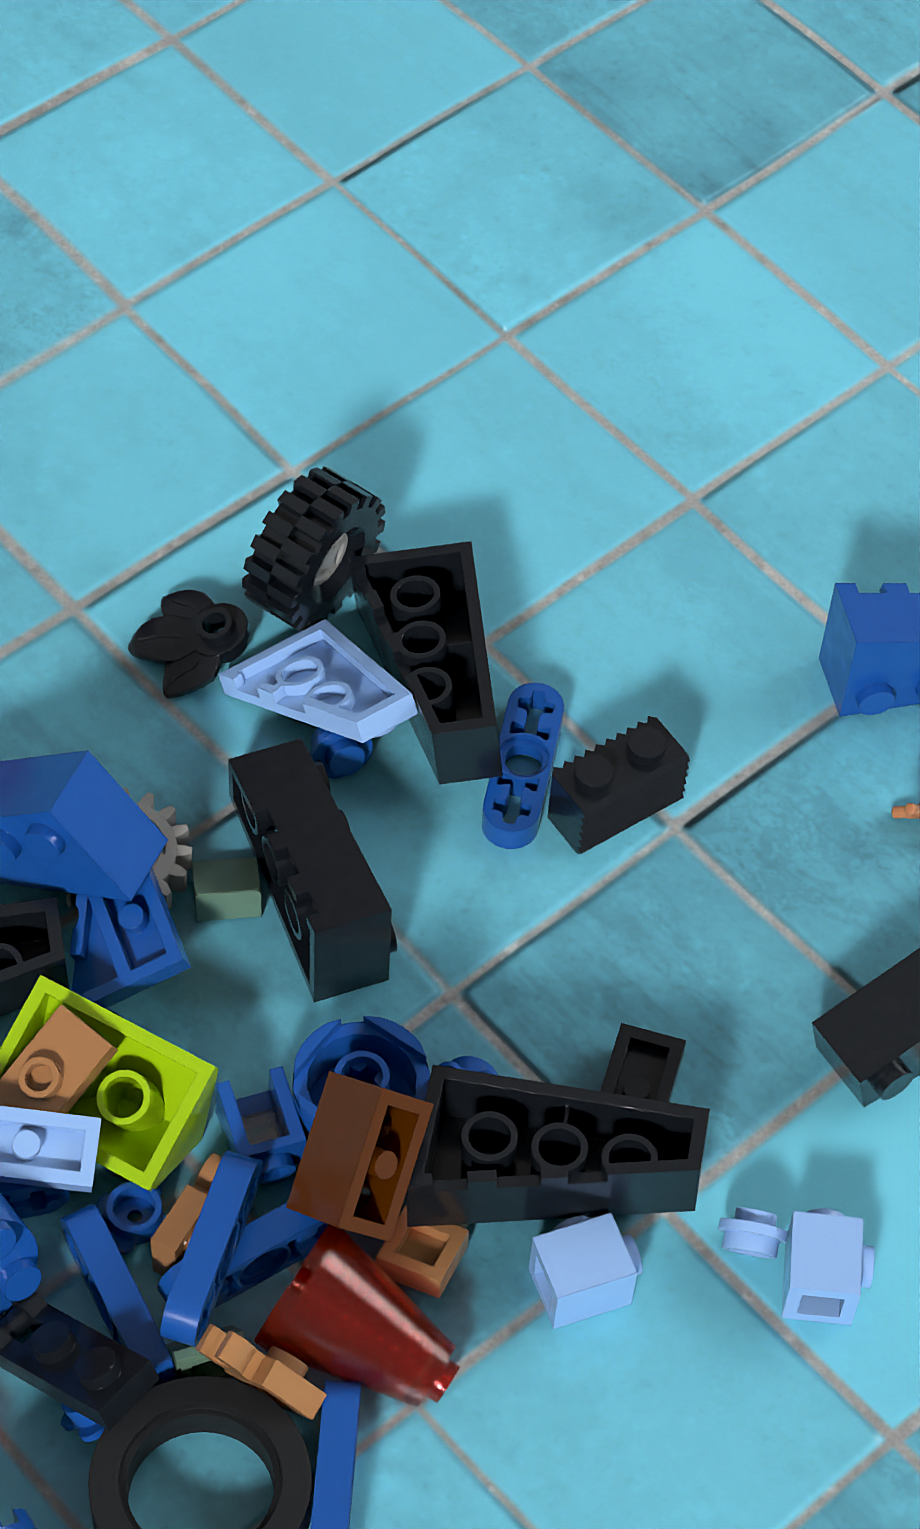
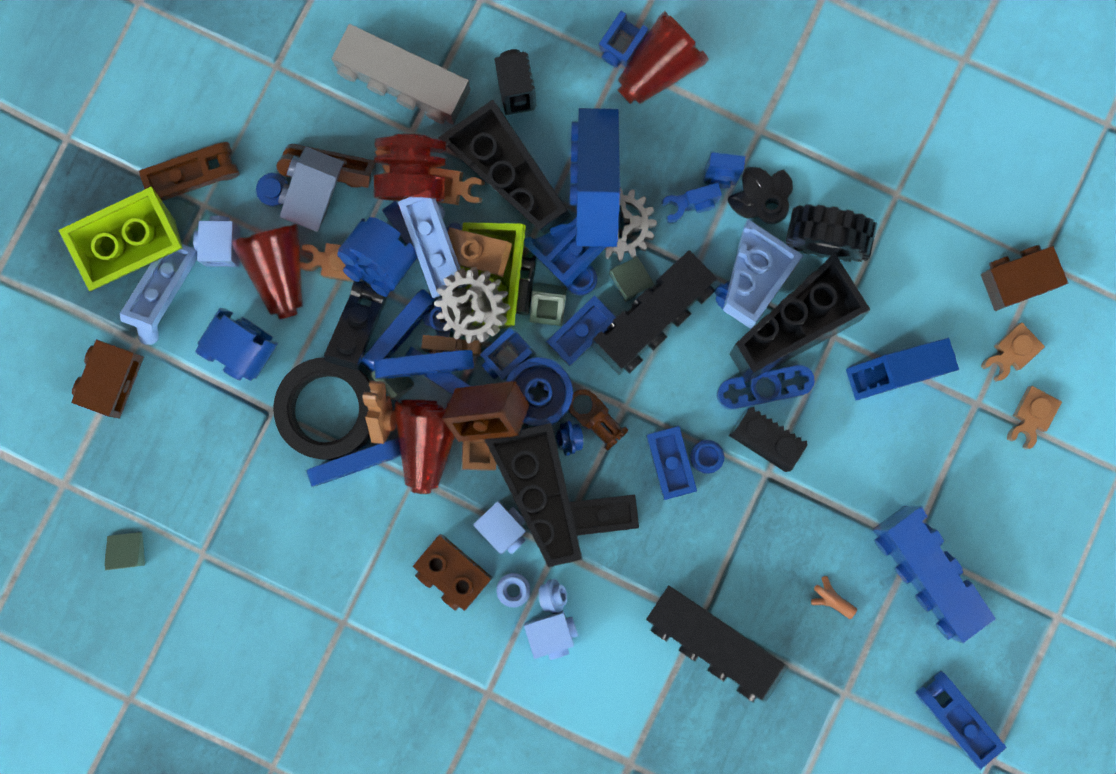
camera: 75 degrees right, 30 degrees up
(118, 657) = (724, 169): none -> blue plate
(144, 724) = (700, 199): none -> blue plate
(165, 1136) = (485, 302): none -> light grey gear
(202, 961) = (584, 282): none -> blue plate
(205, 1028) = (548, 304): none -> sand green slope
(277, 990) = (578, 332): none -> blue plate
(464, 1027) = (593, 420): none -> reddish brown connector
(521, 355) = (1023, 278): none -> reddish brown brick
(588, 562) = (902, 368): none -> blue slope
(590, 950) = (671, 463): none -> blue plate
(604, 894) = (707, 456): none -> blue plate
(633, 414) = (1015, 349): none -> medium nougat plate
(633, 1389) = (451, 573): none -> reddish brown brick
(717, 1286) = (513, 601): none -> light blue plate
(747, 428) = (1035, 412): none -> medium nougat plate

